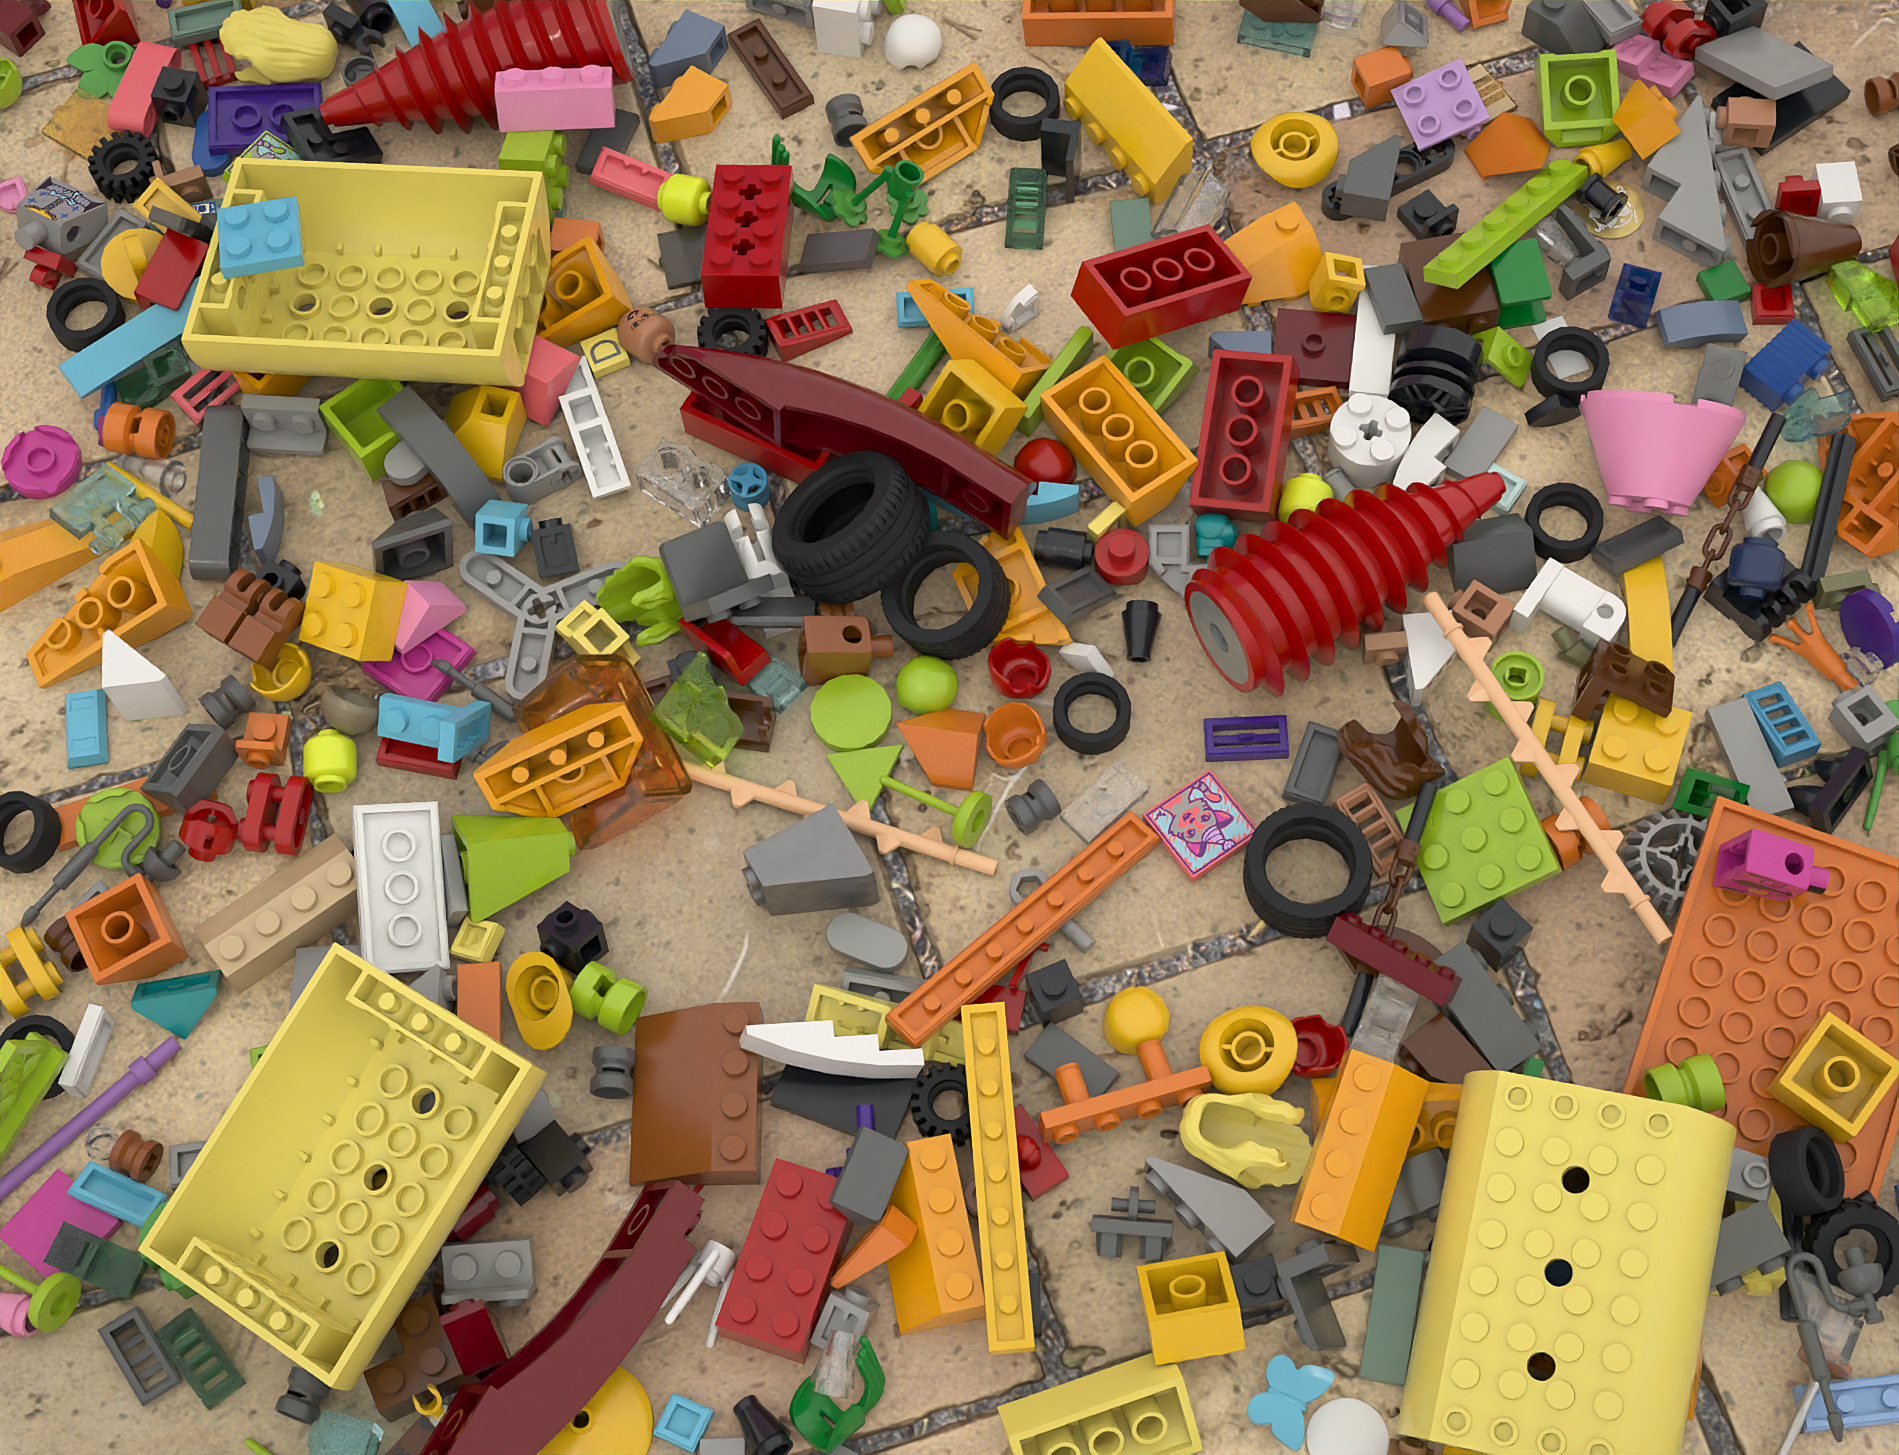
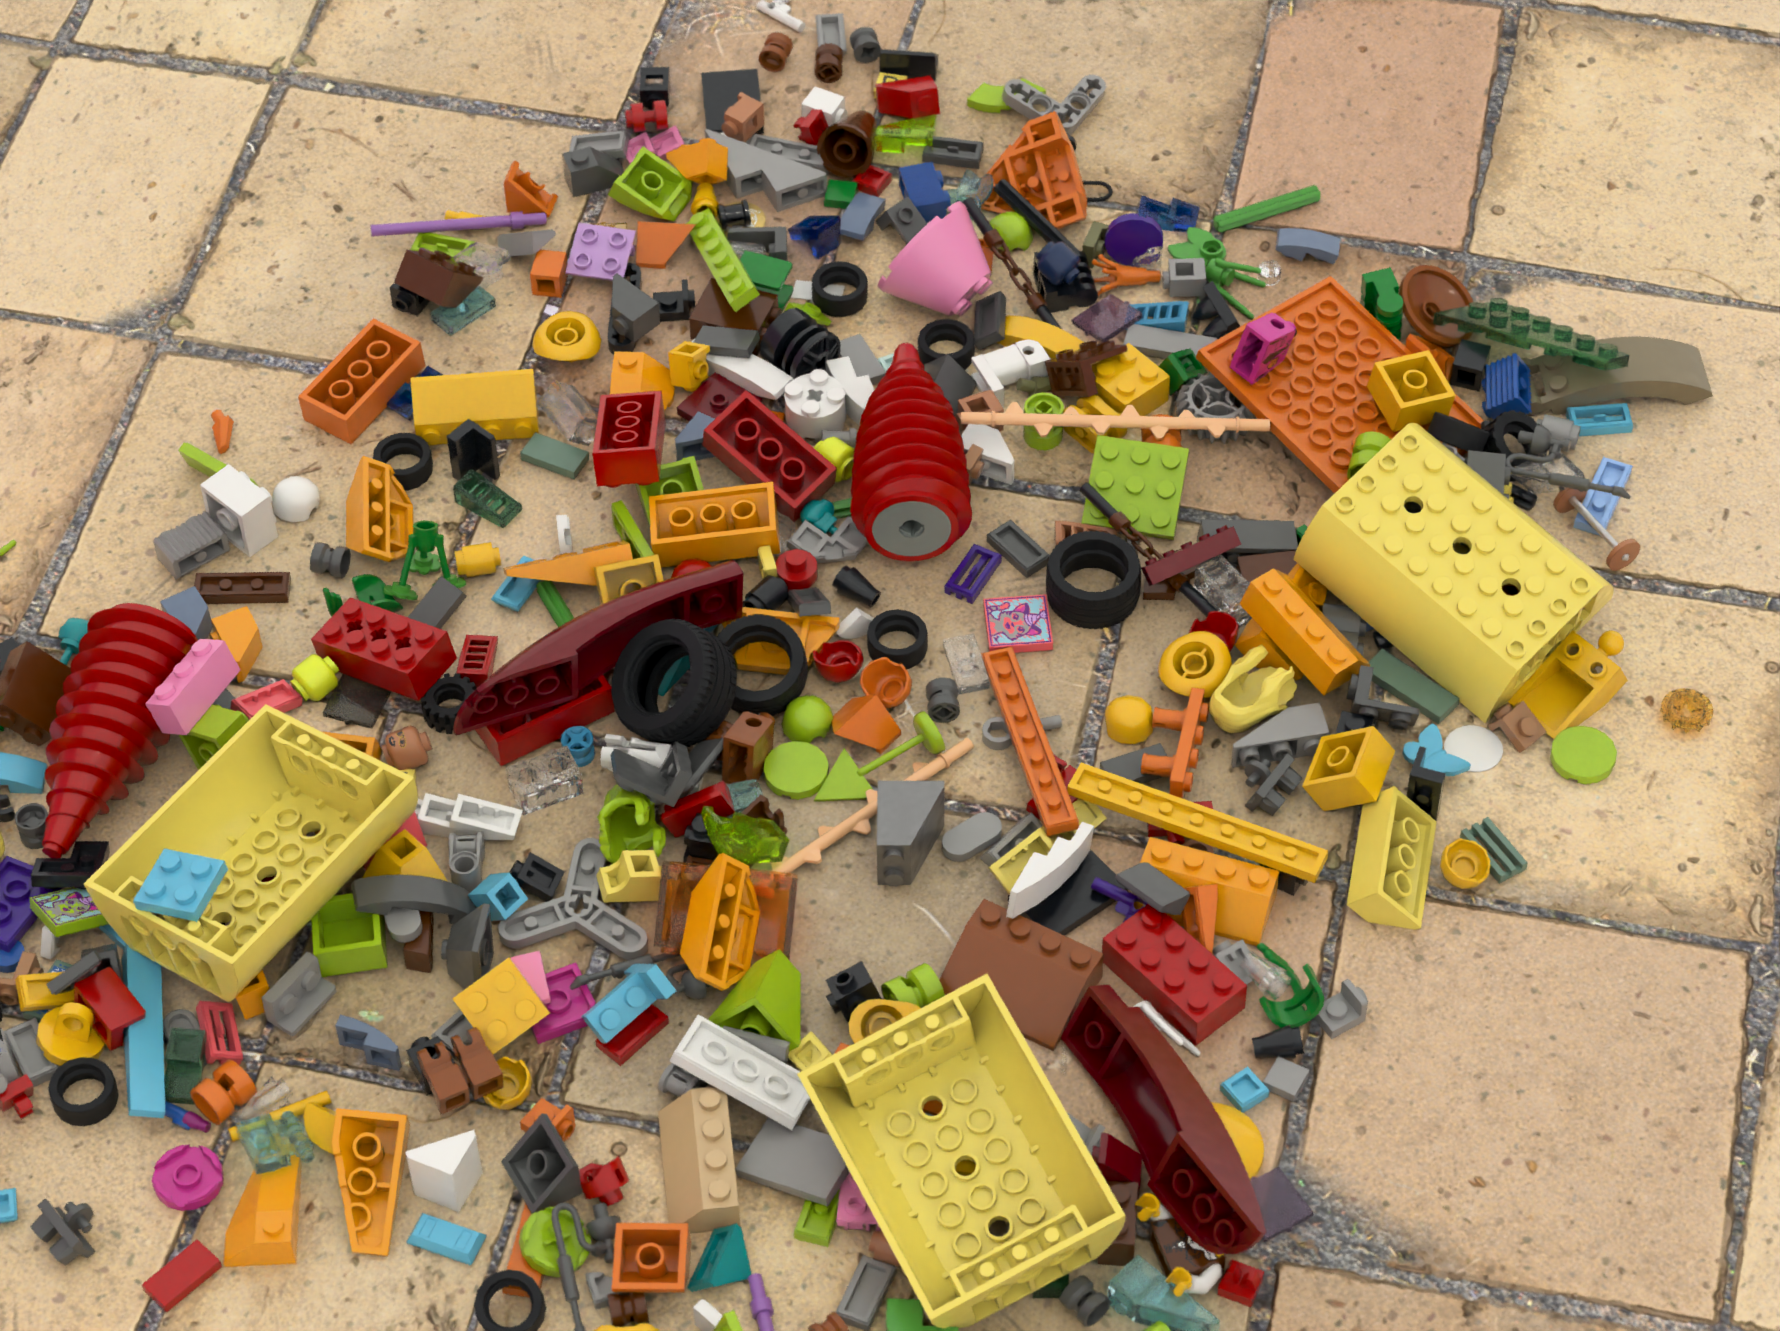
camera: 65 degrees left, 15 degrees down
(220, 494) = (318, 1063): dark grey beam -> none
(220, 708) = (501, 1128): dark grey wheel -> none
(263, 801) = (619, 1134): red brick -> none
(330, 761) = (601, 1086): neon yellow head -> none
(349, 711) = (575, 1052): dark tan piece -> none
(924, 1096) = (1120, 826): black tyre -> none
(1054, 993) = (1084, 744): black brick -> none
(1211, 1400) = (1425, 786): none -> black panel
(1391, 761) = (1045, 499): reddish brown hair -> none
(1499, 934) = (1201, 504): black brick -> none
(1552, 412) = (864, 314): black tile -> none
(1737, 669) = (1107, 318): none -> piece
(1762, 516) = (1021, 253): white cone -> none
(1764, 62) = (708, 90): light grey tile -> none

